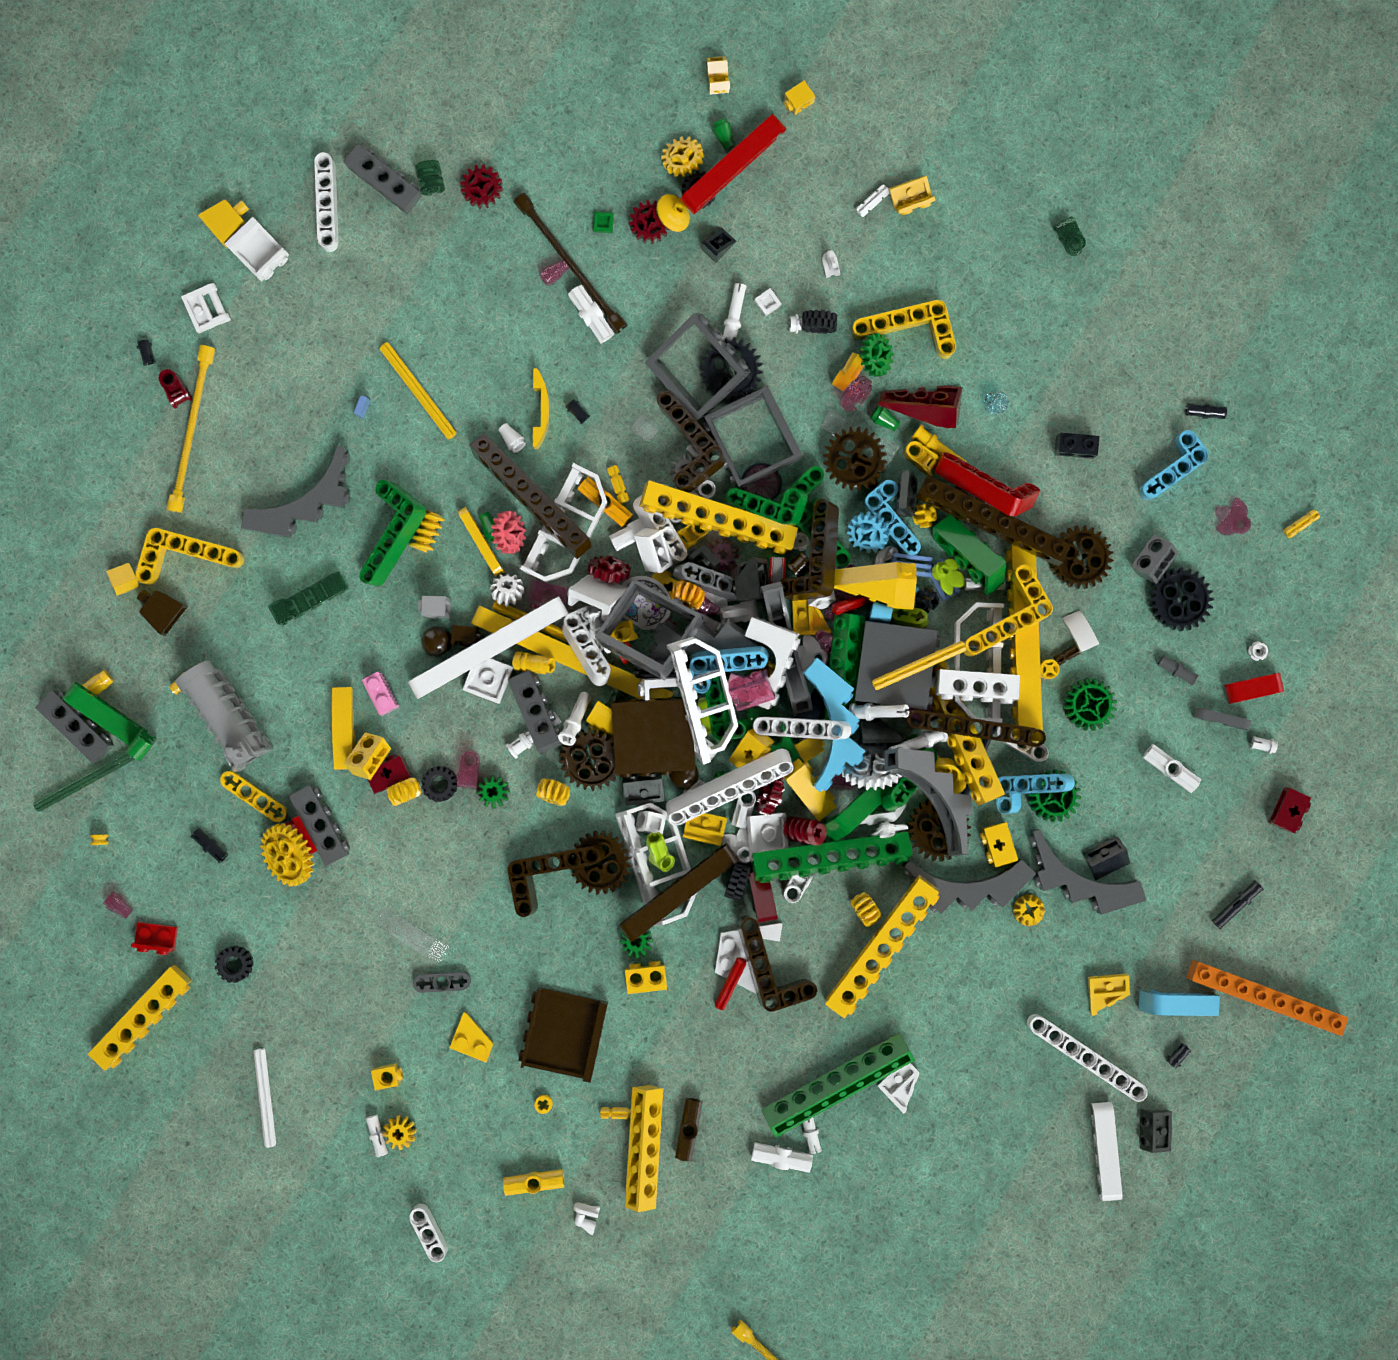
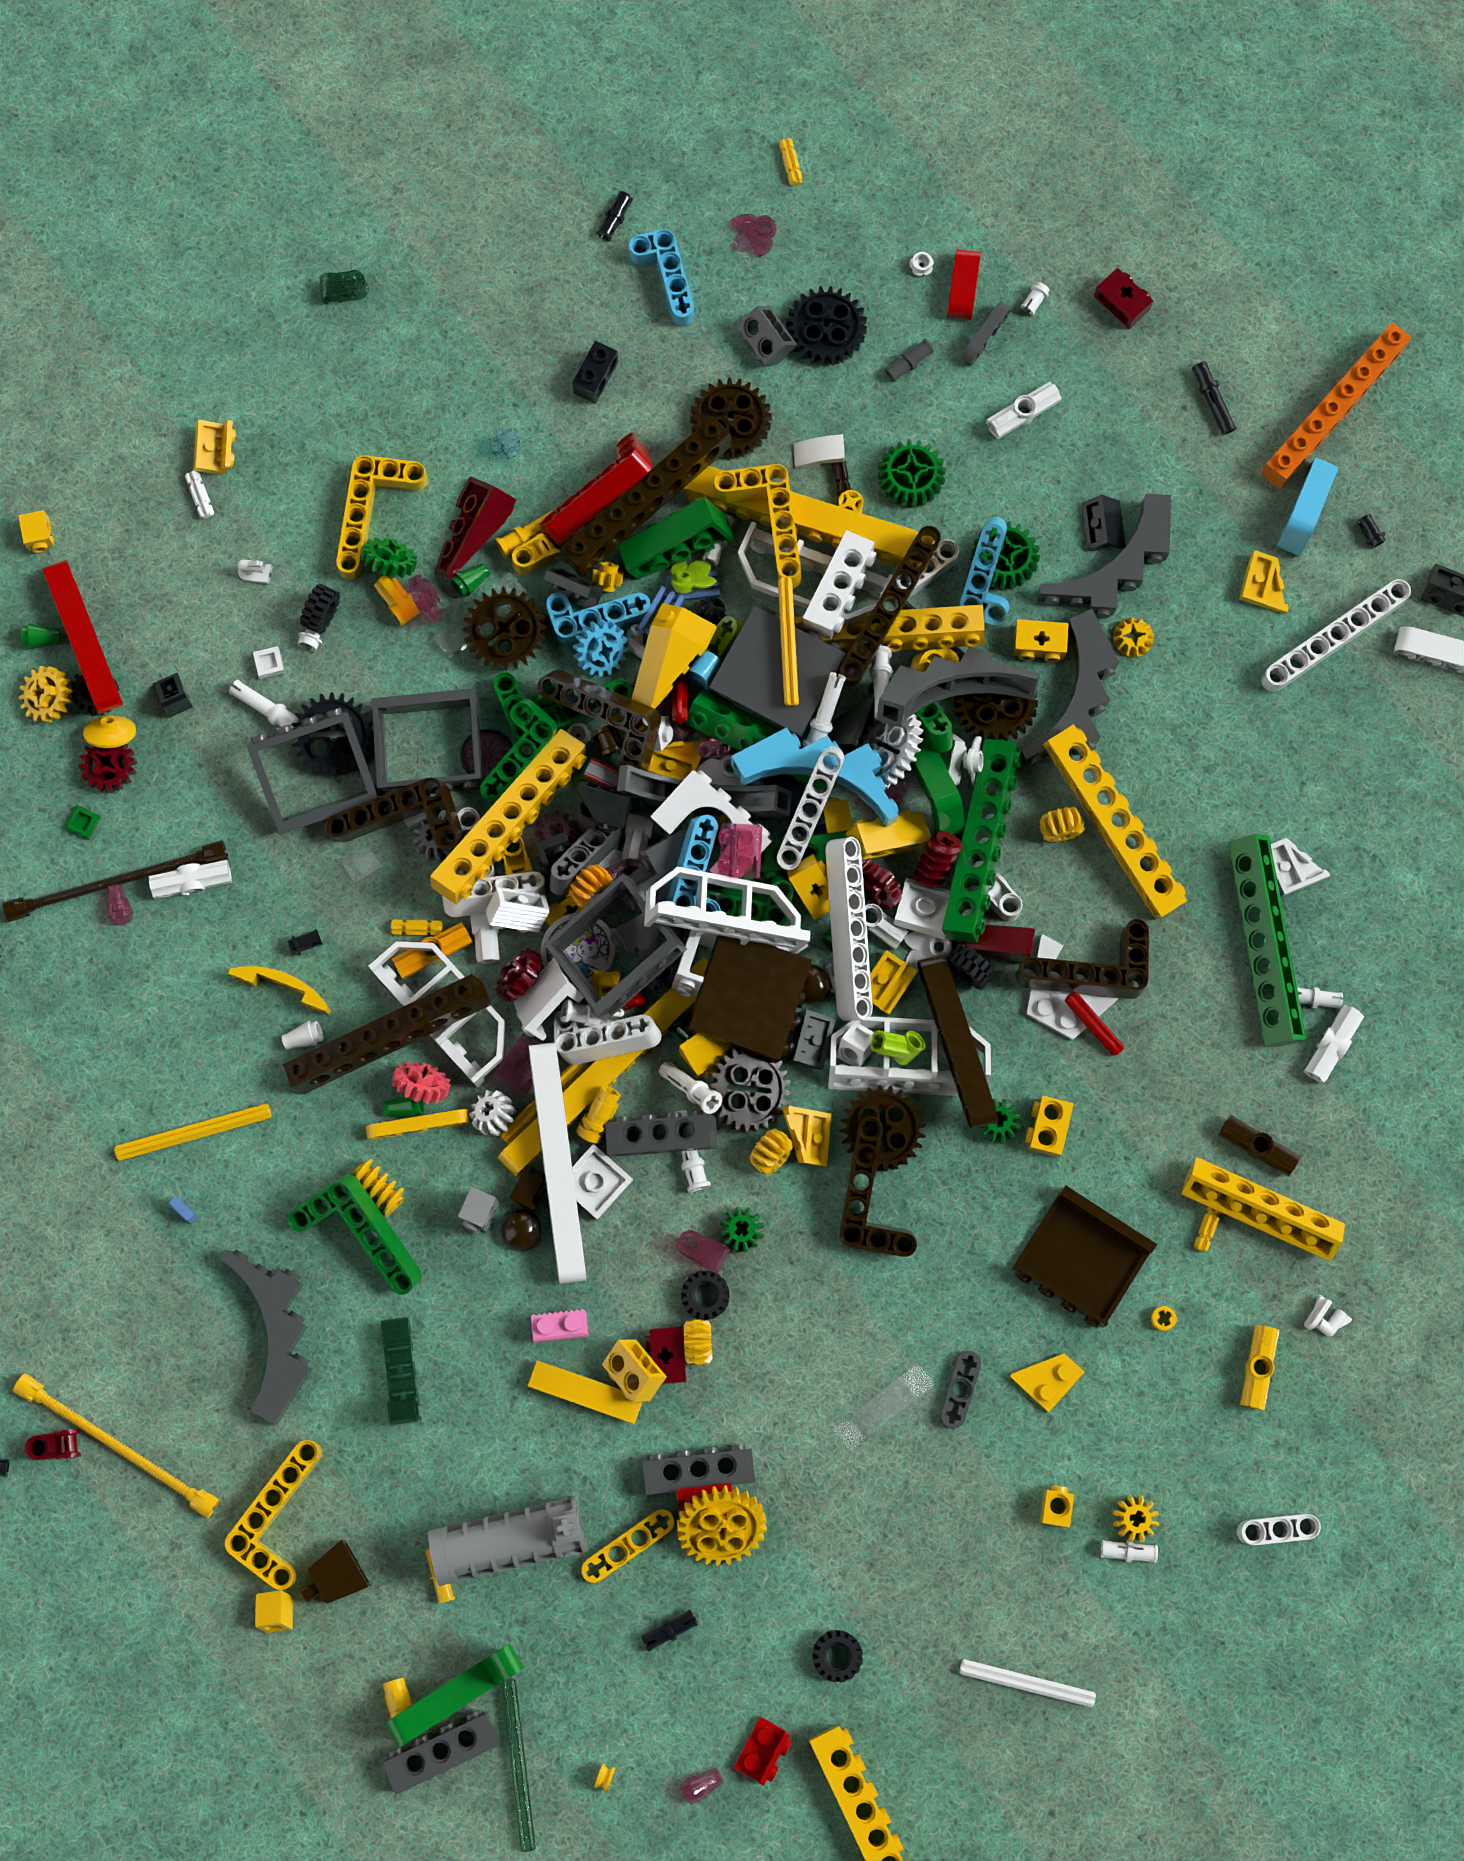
camera: 70 degrees left, 10 degrees down
(576, 813) = (809, 1134): none -> yellow wing

